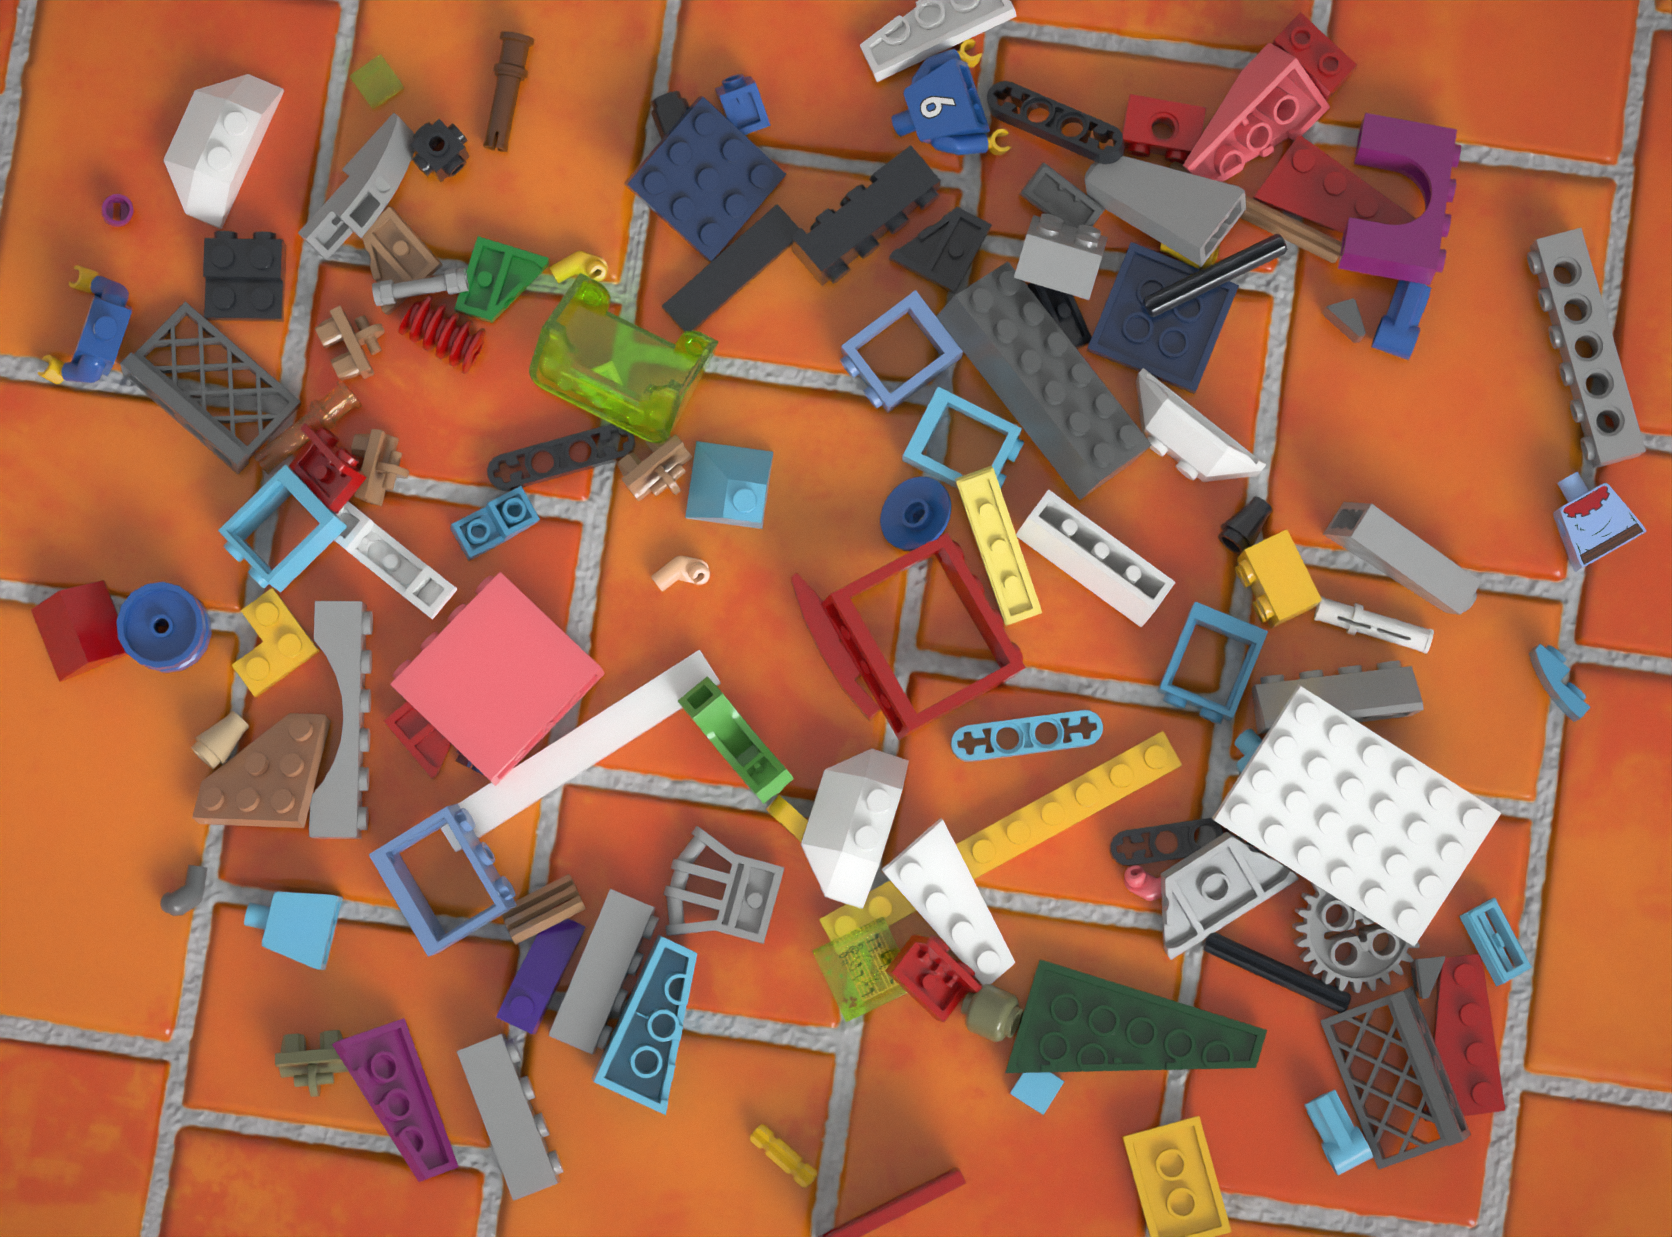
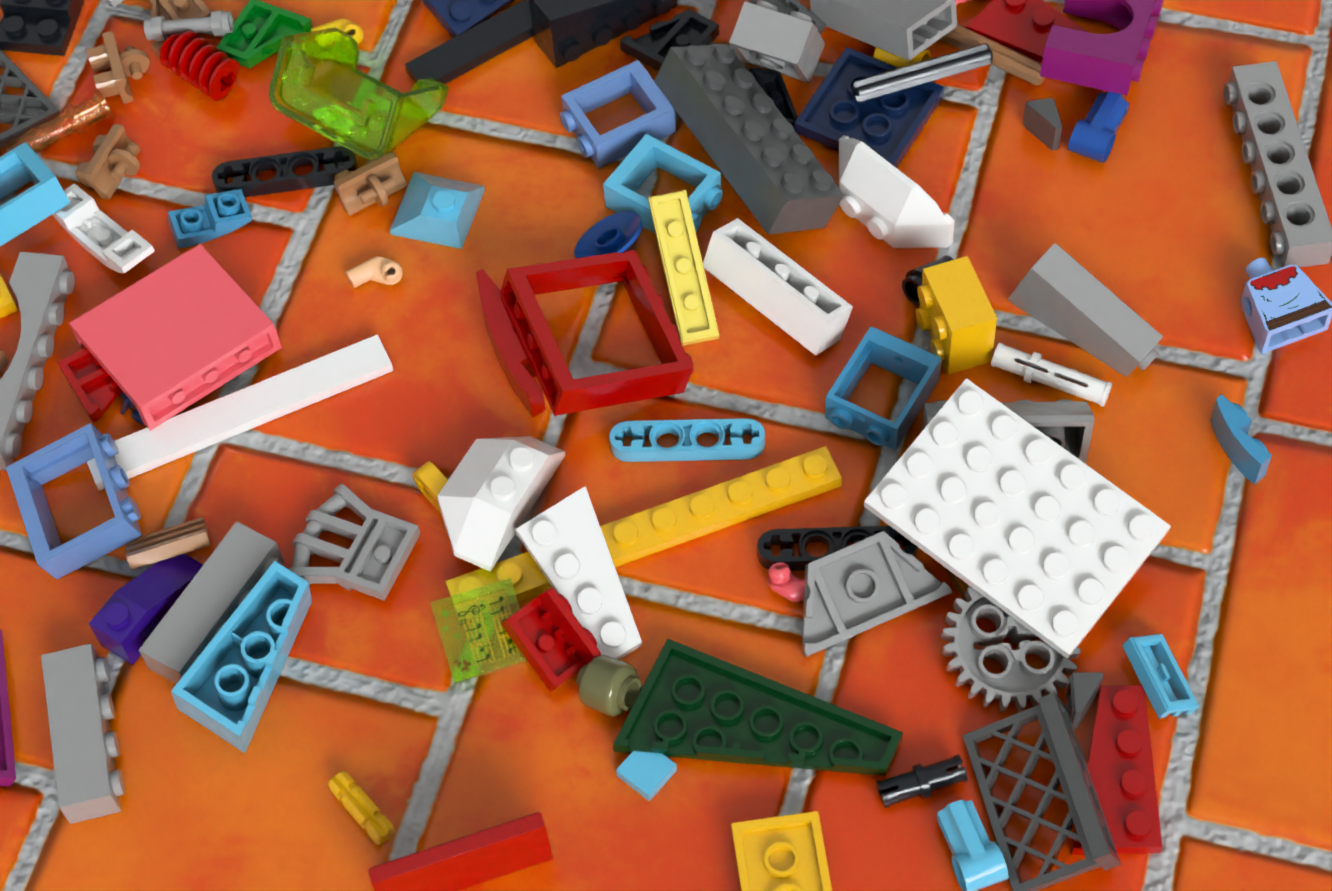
camera: 10 degrees right, 25 degrees down
(327, 468) = (68, 151): red bracket -> none
(735, 740) = (390, 405): bright green arch -> none
(1277, 972) = (919, 682): black axle -> none
(1287, 1072) = (921, 781): none -> black pin

